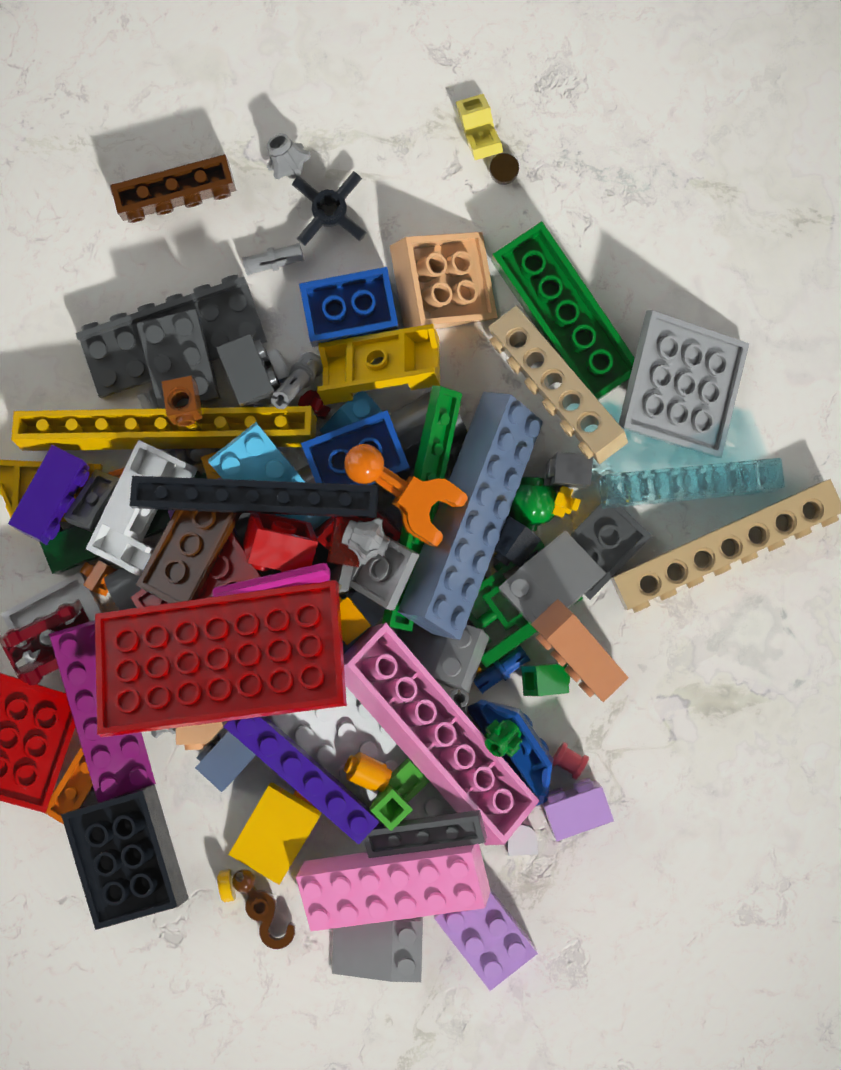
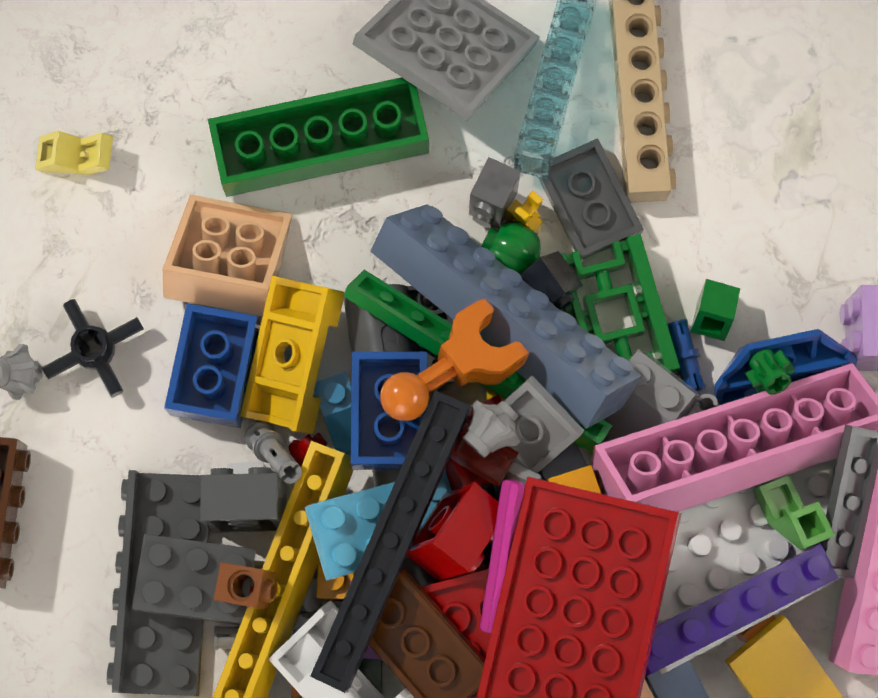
camera: 70 degrees left, 10 degrees down
(273, 259) = (122, 432): light grey pin -> none
(367, 772) = (756, 537): light orange brick -> none
(504, 168) = (131, 145): dark brown tile -> none
(515, 328) = (313, 191): tan brick -> none
(554, 573) = (612, 259): light grey slope -> none
(570, 760) = (816, 316): coral bush -> none
(579, 650) = (700, 254): nougat brick -> none

